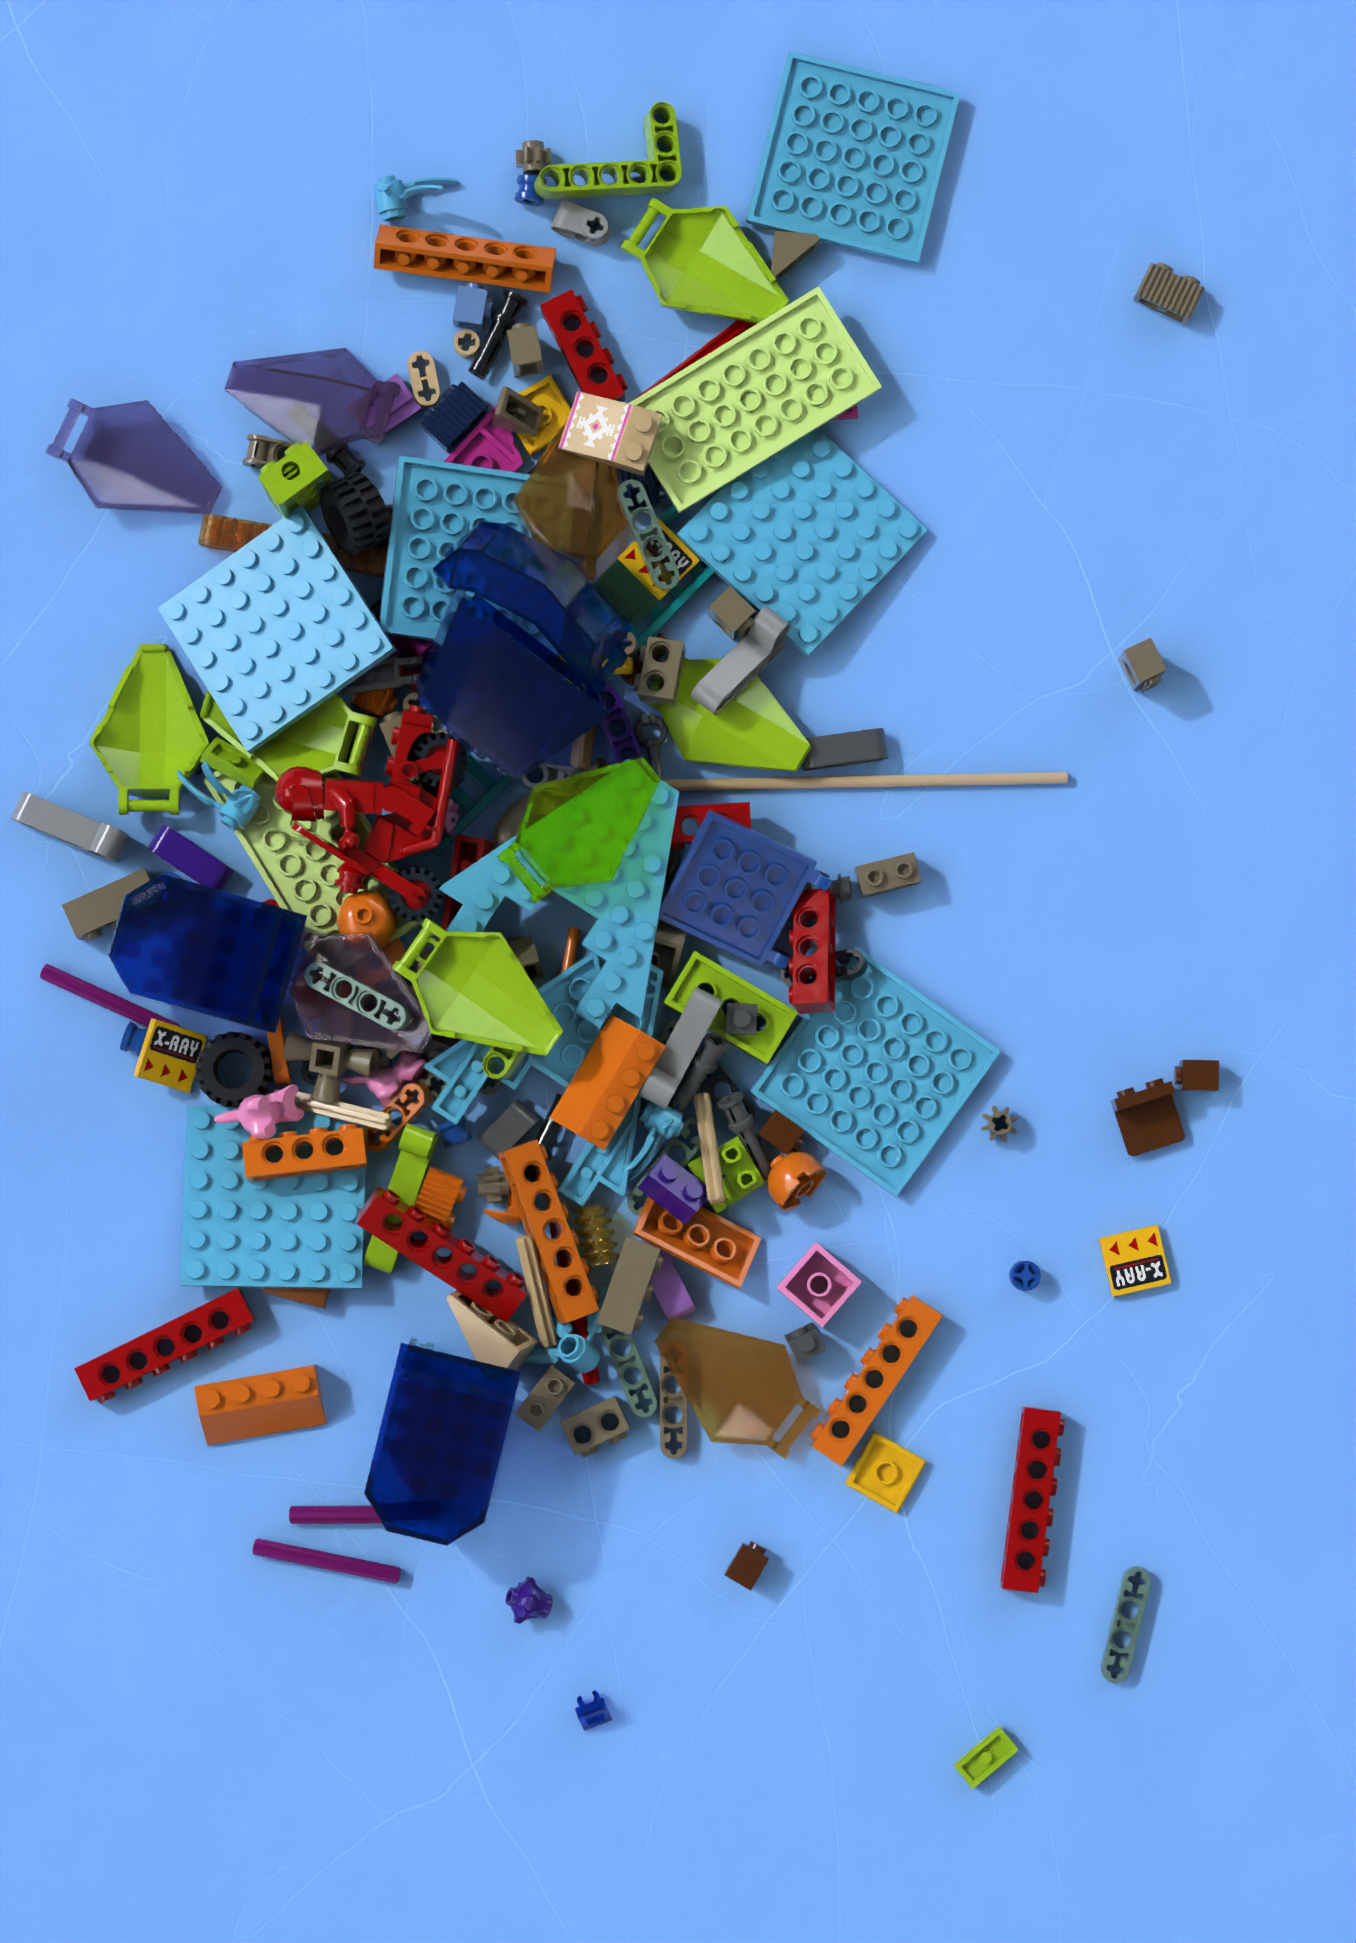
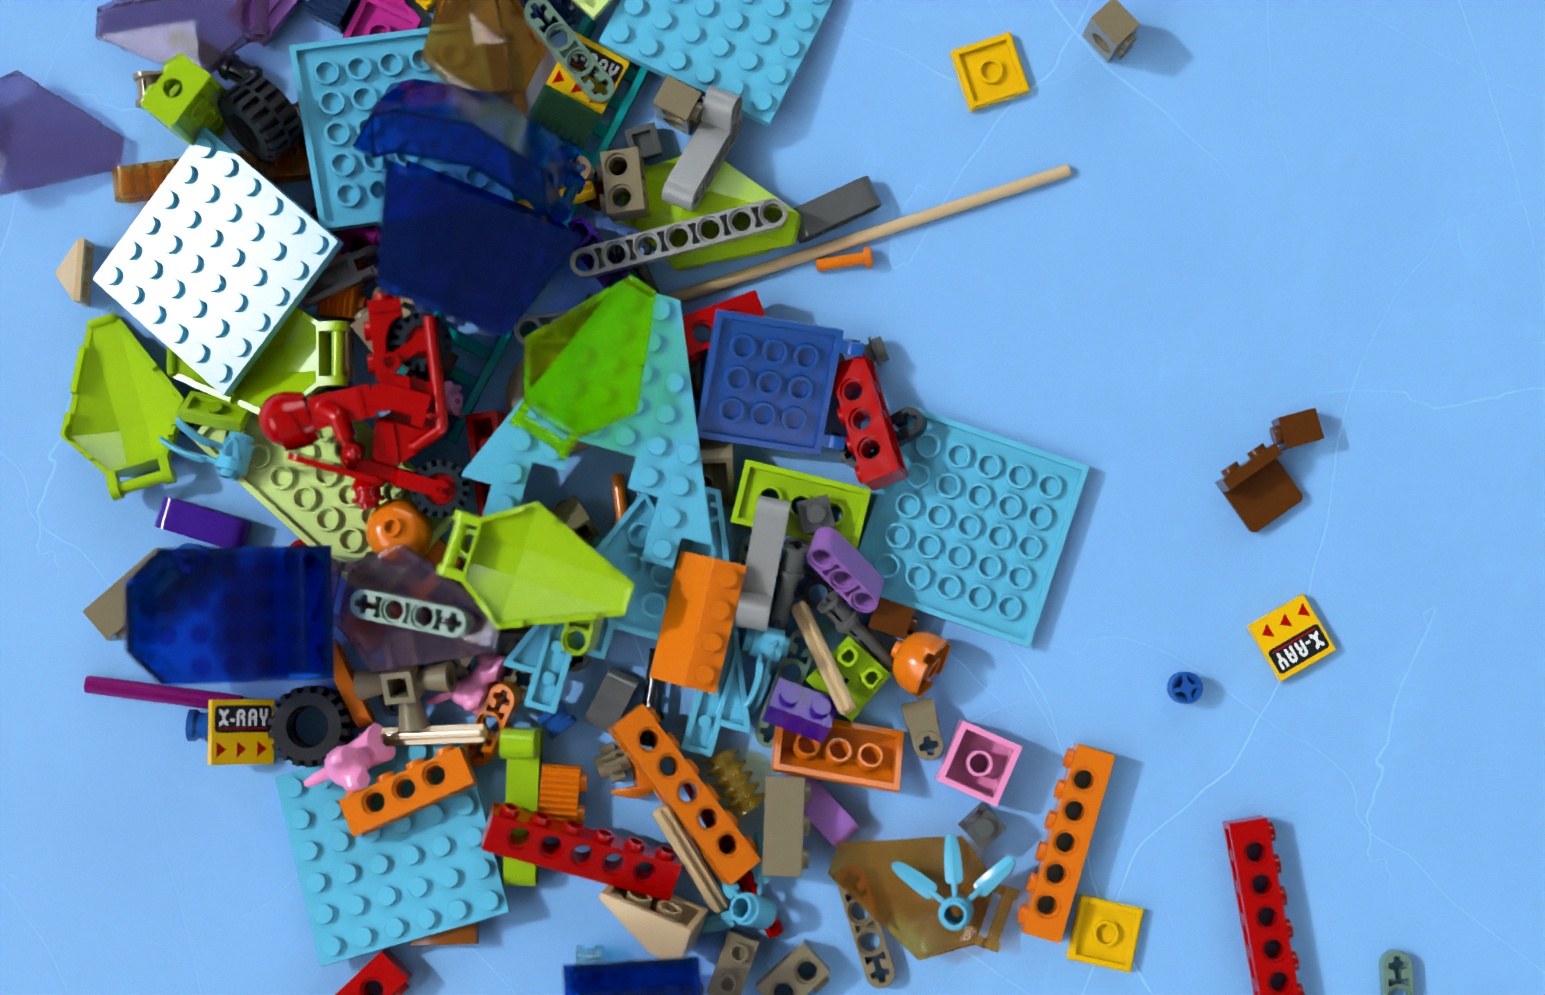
camera: 10 degrees left, 0 degrees up
(70, 827) = (70, 528): light grey beam -> none
(143, 595) = (76, 271): none -> tan slope
(582, 750) = (568, 286): tan tile -> none
(622, 1363) = (801, 905): sand green beam -> none
(691, 633) = (646, 139): none -> dark grey plate
(709, 742) = (663, 235): none -> light grey beam
(753, 1076) = (845, 569): none -> medium lavender beam
(765, 1377) = (954, 875): none -> medium azure plant
(779, 1235) = (923, 721): none -> dark tan piece
(840, 799) = (848, 260): none -> orange piece
(887, 875) = (919, 322): dark tan brick -> none
(1007, 1121) = (1117, 535): dark tan gear -> none
(1023, 666) = (989, 72): none -> yellow tile

